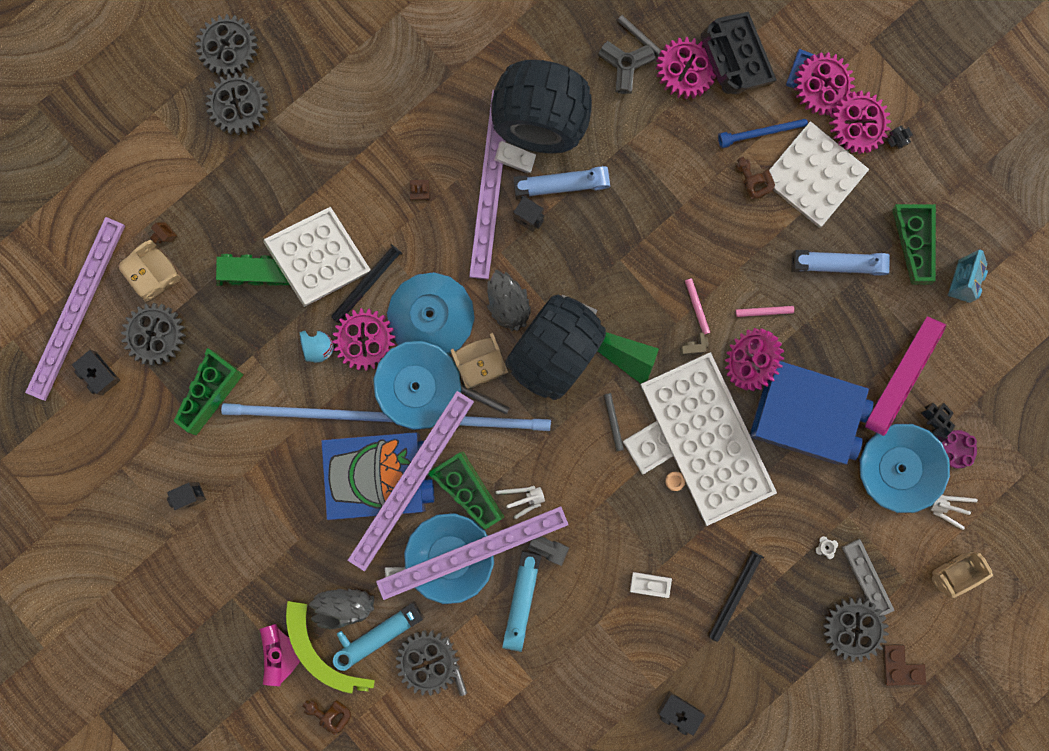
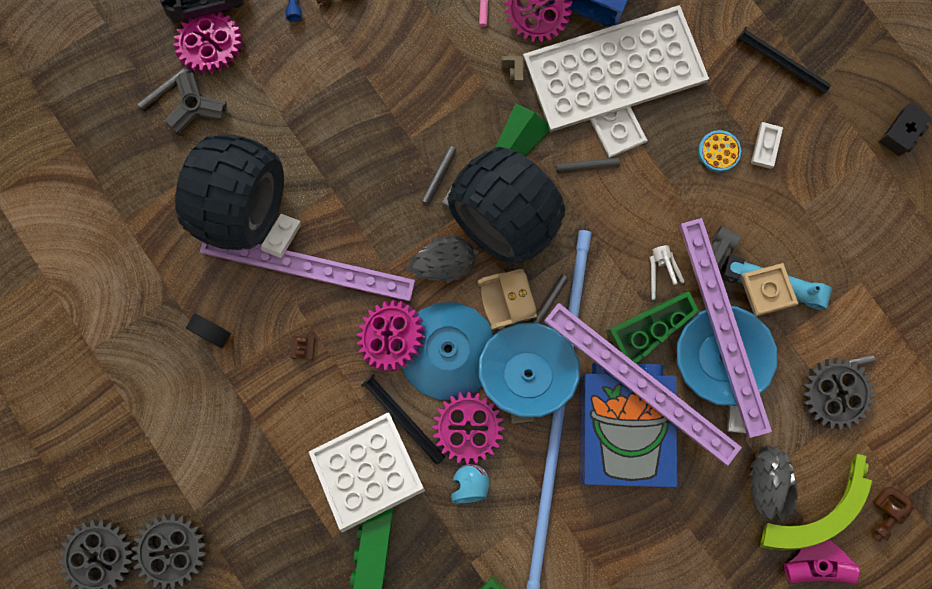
camera: 85 degrees left, 5 degrees down
(377, 636) = (806, 446): medium azure piece -> none
(423, 107) = (208, 330): none -> black tyre
(436, 278) = (391, 336): none -> dark pink gear
(511, 592) = (769, 289): none -> tan tile
(529, 214) = (349, 225): black brick -> none
(588, 289) = (438, 175): none -> flat silver bar
(594, 179) = (316, 189): light blue piece -> none
(640, 541) = (719, 151): none -> tile
(674, 481) = (657, 108): light nougat tile -> none
(697, 306) = (471, 63): bright pink bar -> none

